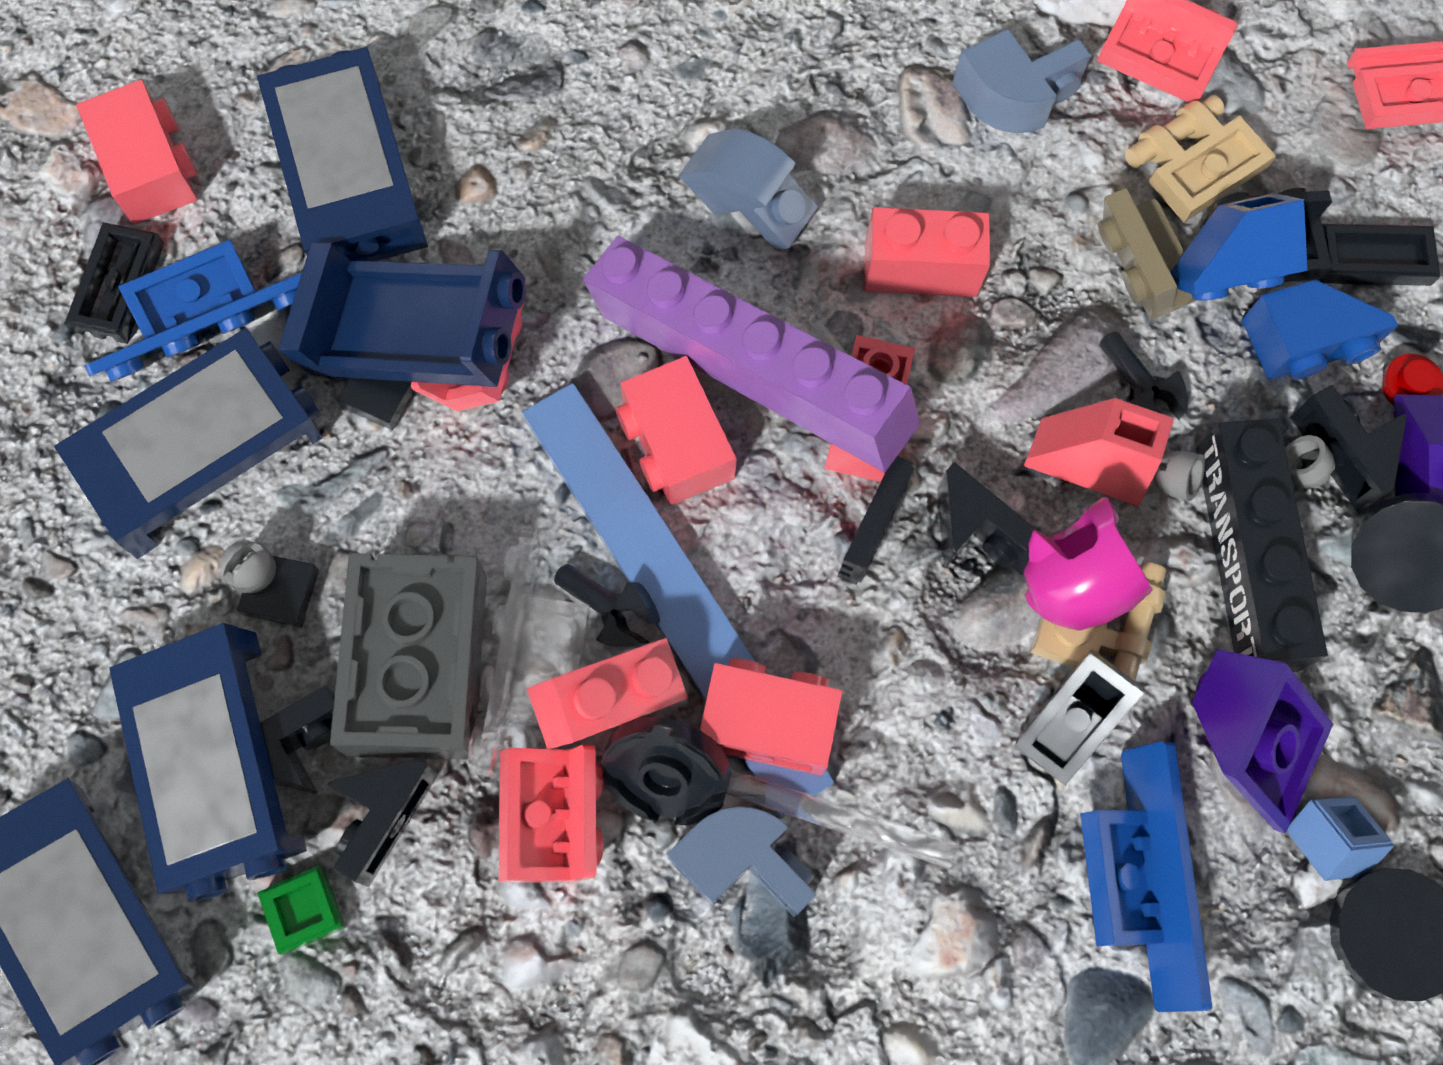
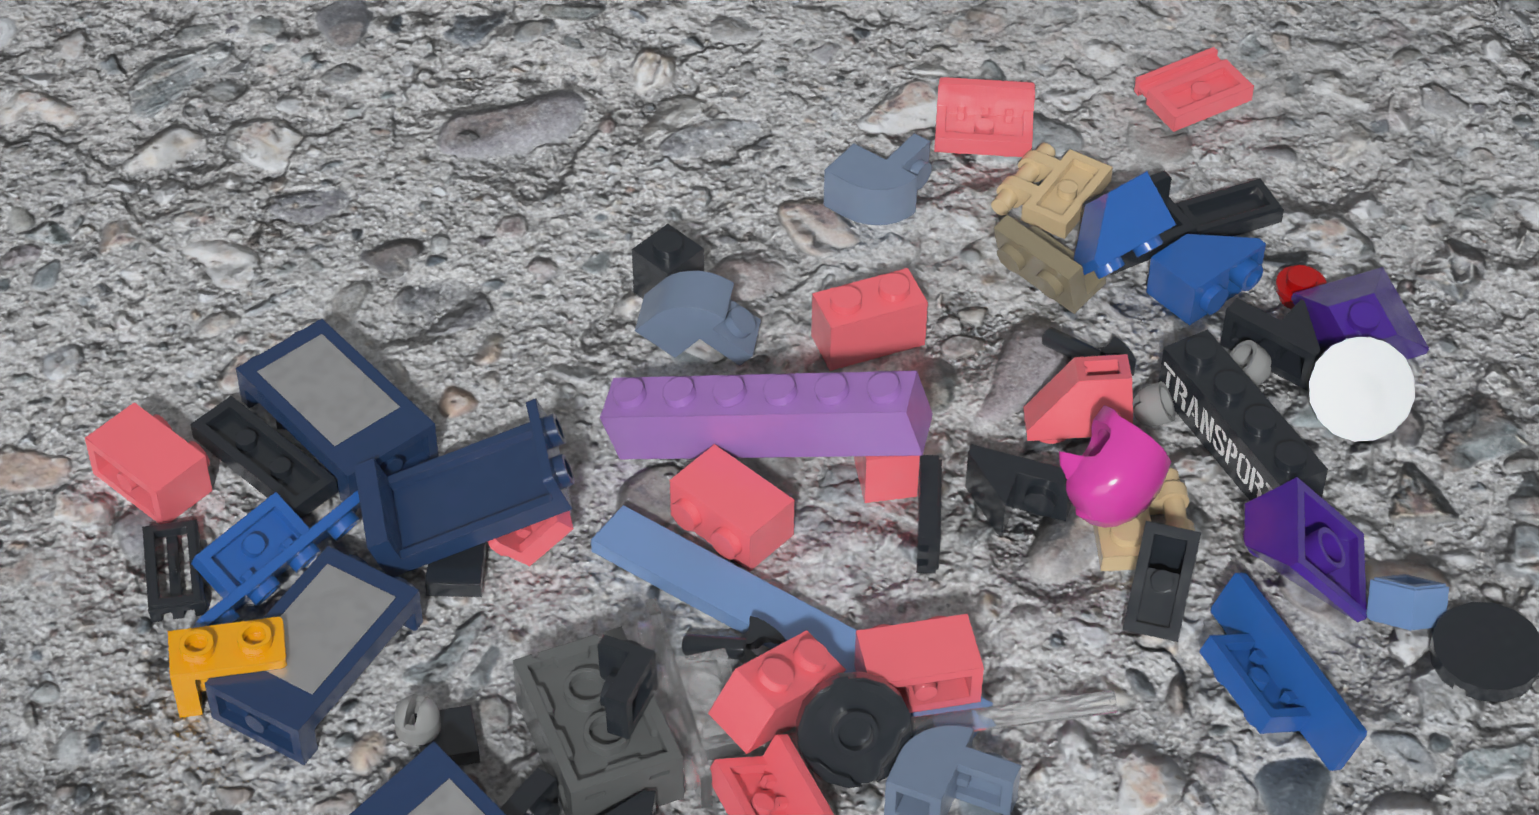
camera: 20 degrees left, 25 degrees down
(87, 417) = (220, 652): none -> light orange bracket
(251, 186) = (263, 456): none -> black plate
(433, 656) = (628, 684): none -> black bracket
(748, 103) = (663, 255): none -> black brick

